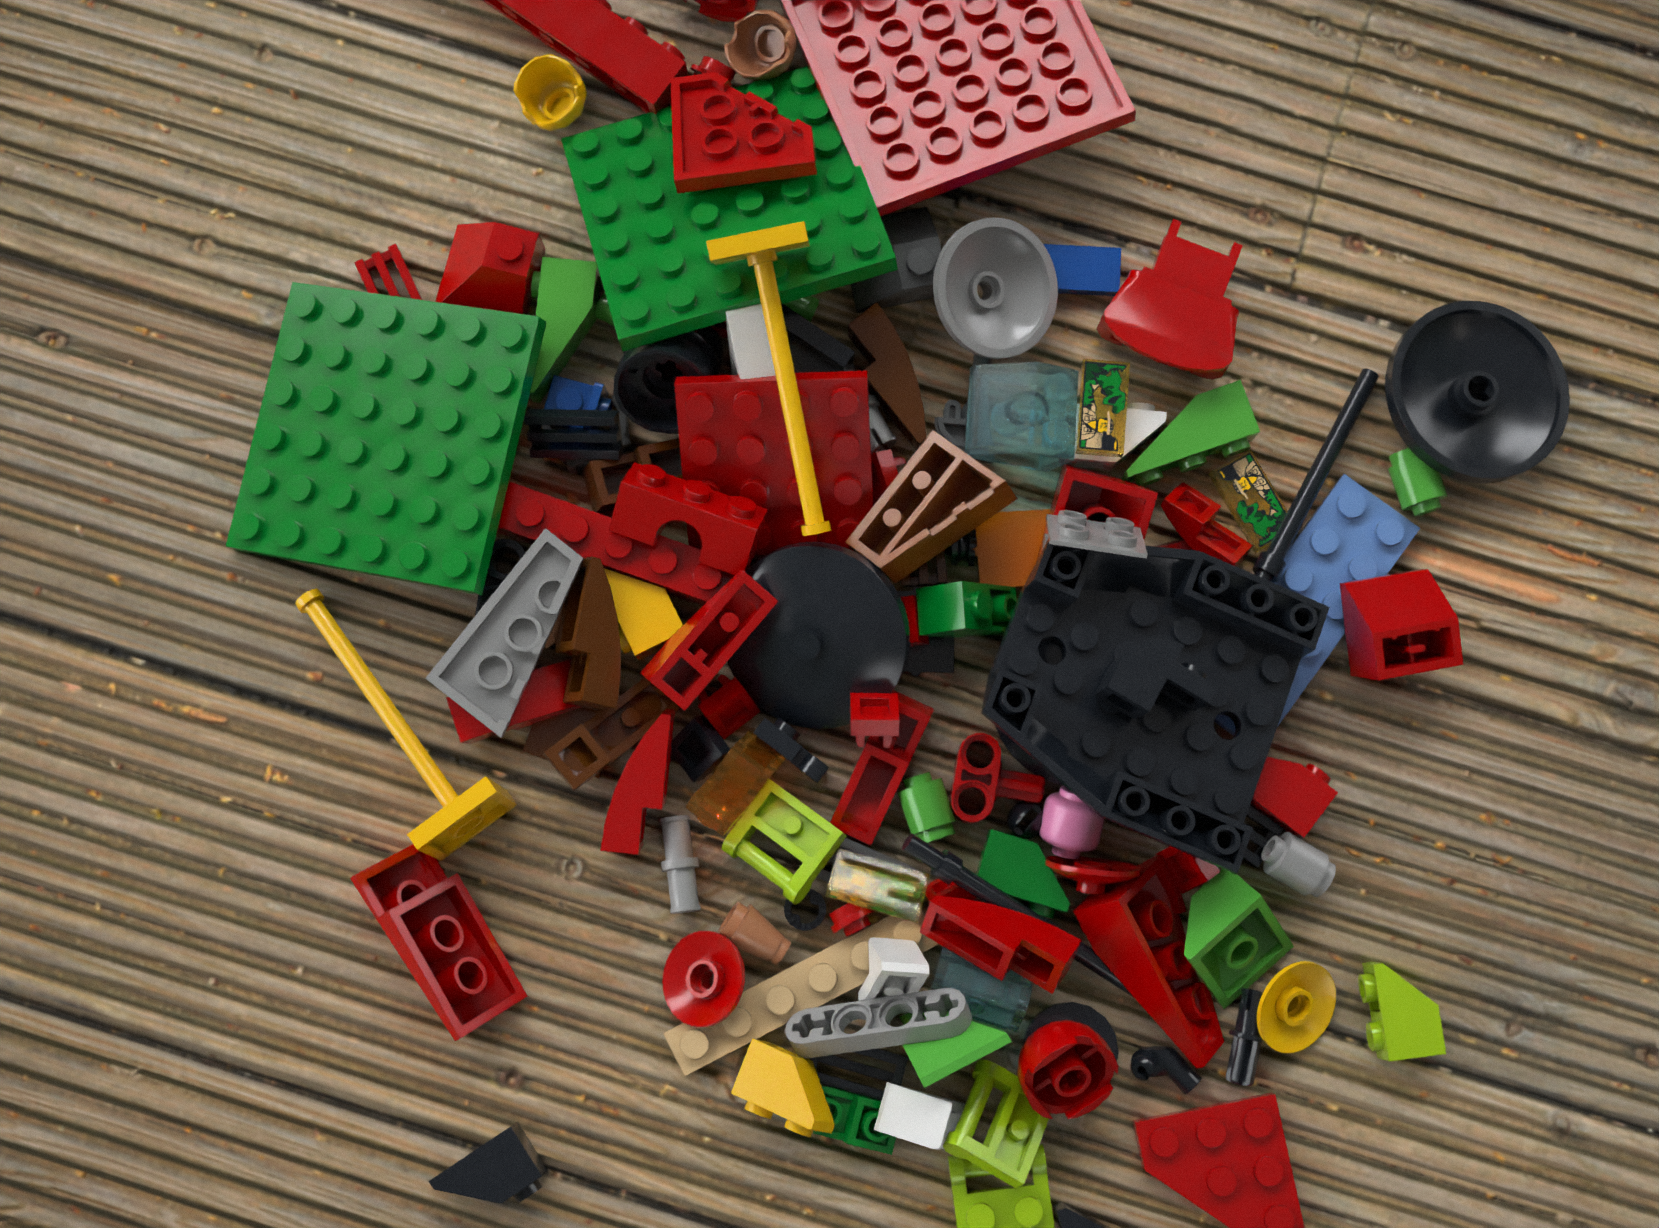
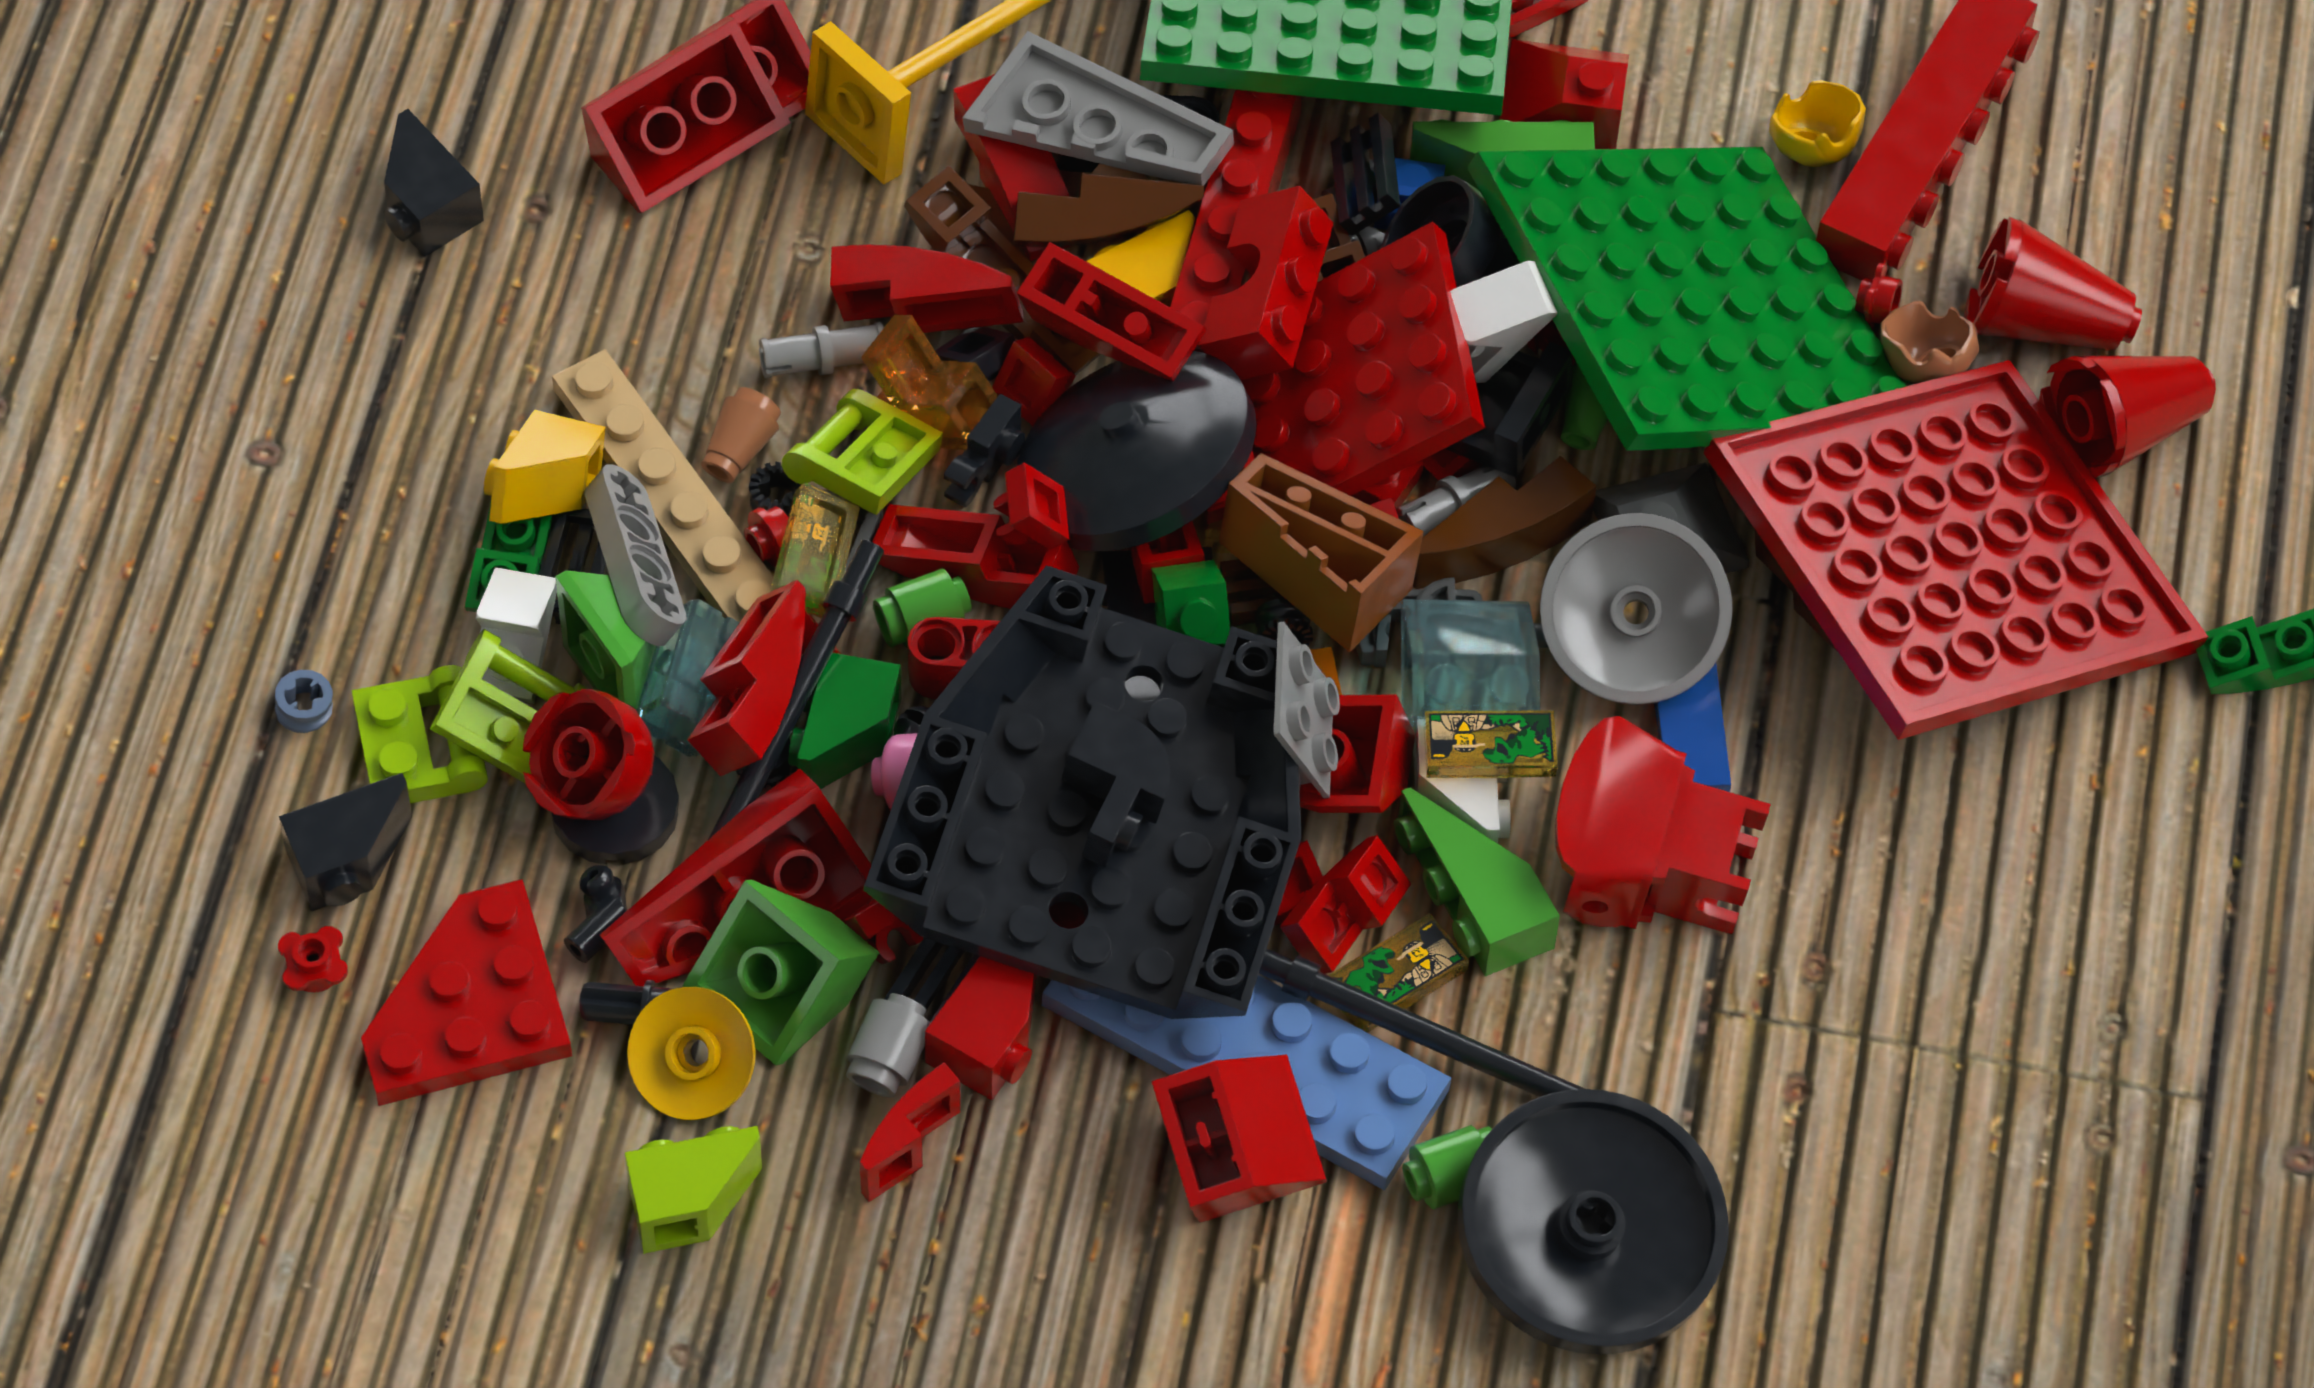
camera: 80 degrees right, 25 degrees down
(689, 974) = (677, 380): red dish -> none
(733, 137) = (1781, 283): red plate -> none
(760, 251) = (1610, 261): yellow tile -> none
(894, 968) = (708, 560): white slope -> none
(1093, 873) = (852, 787): red dish -> none
(1377, 865) = (897, 1142): none -> red slope

